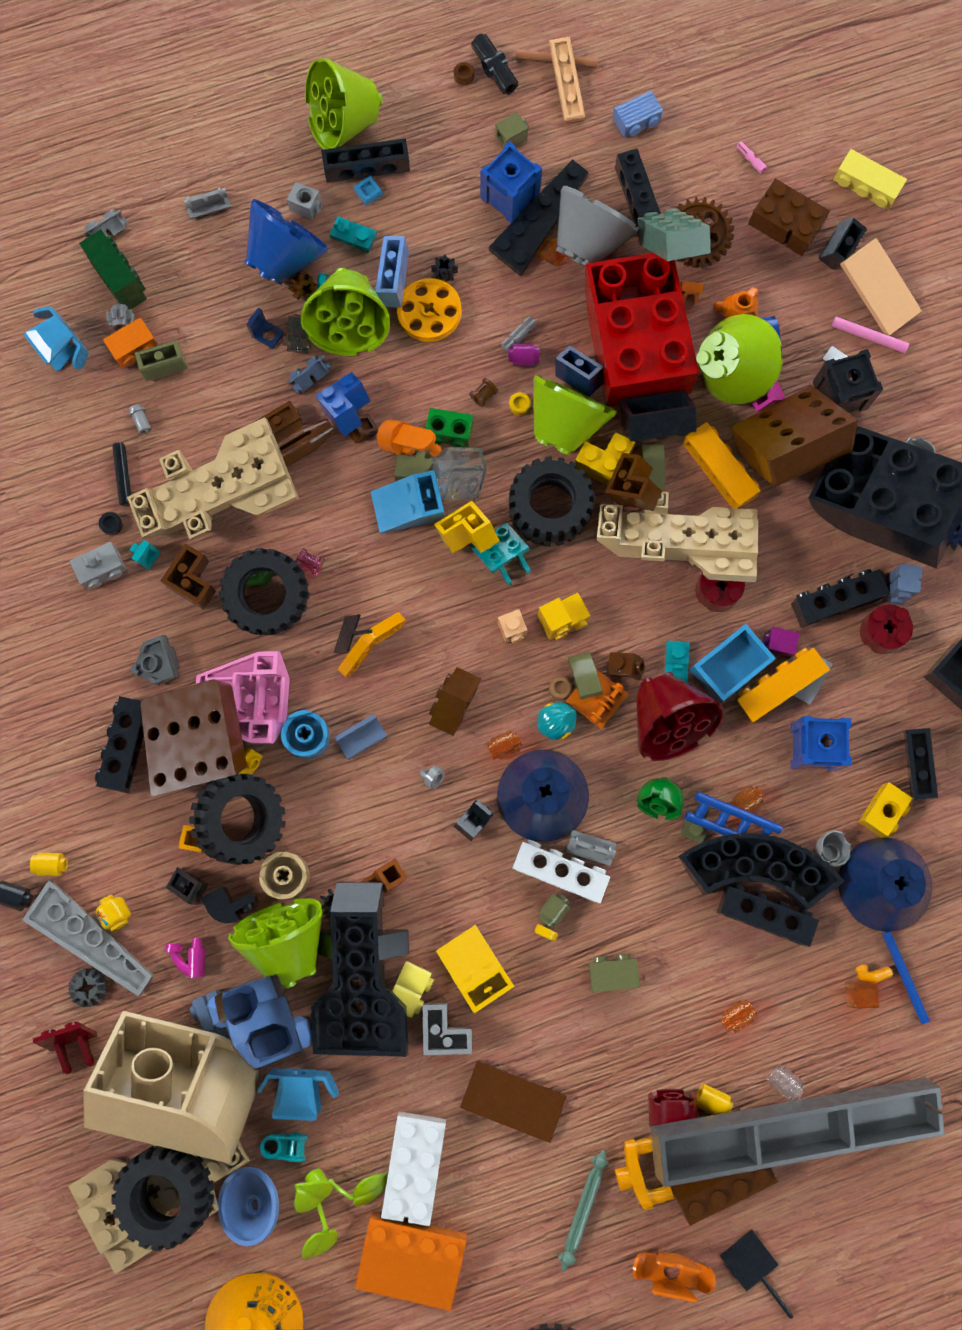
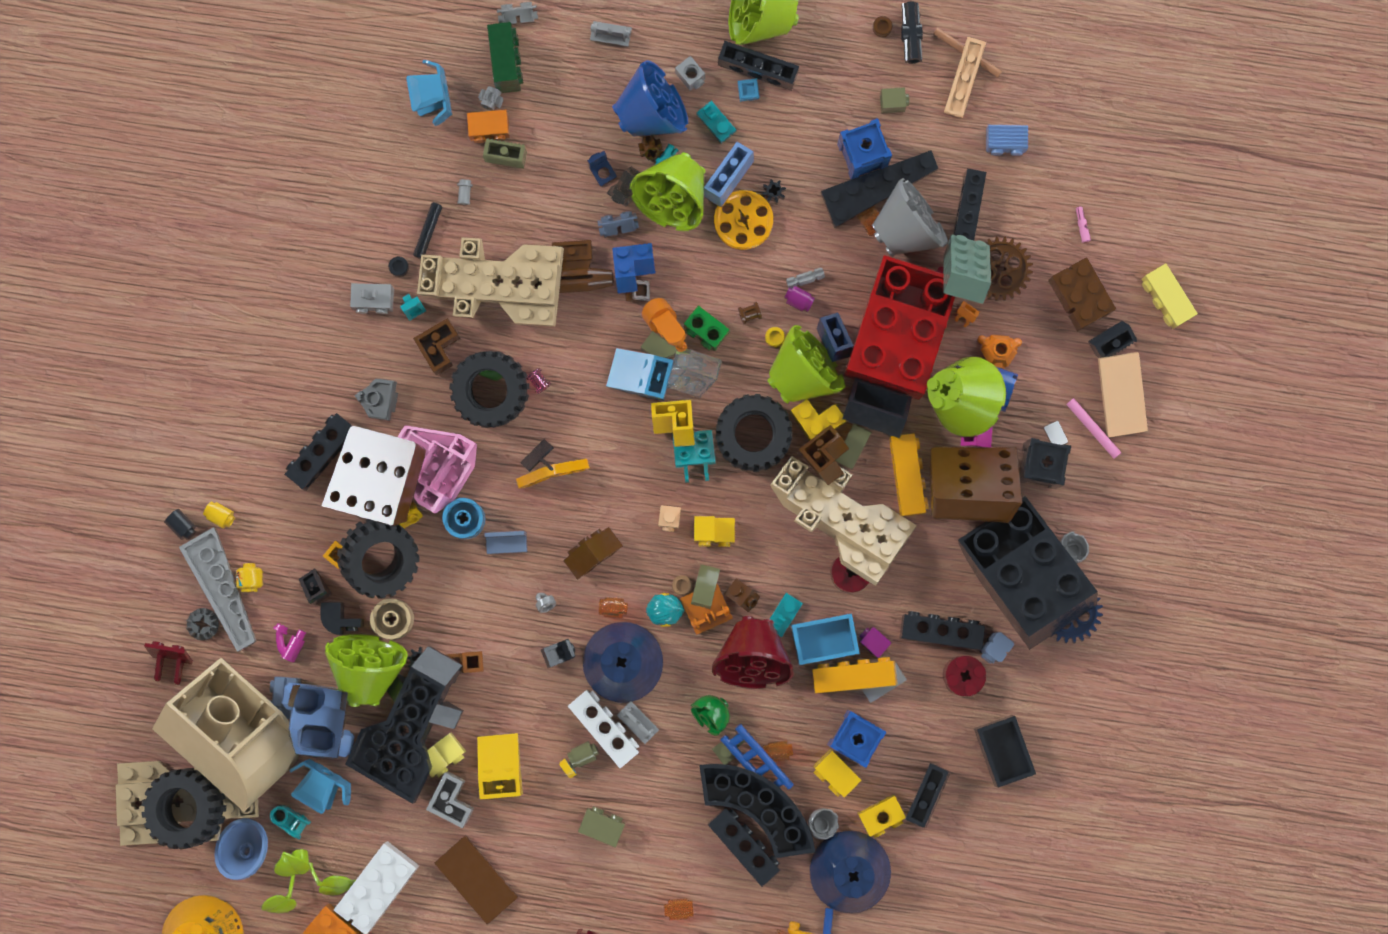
camera: 30 degrees right, 5 degrees up
(819, 790) = (837, 773): none -> yellow brick

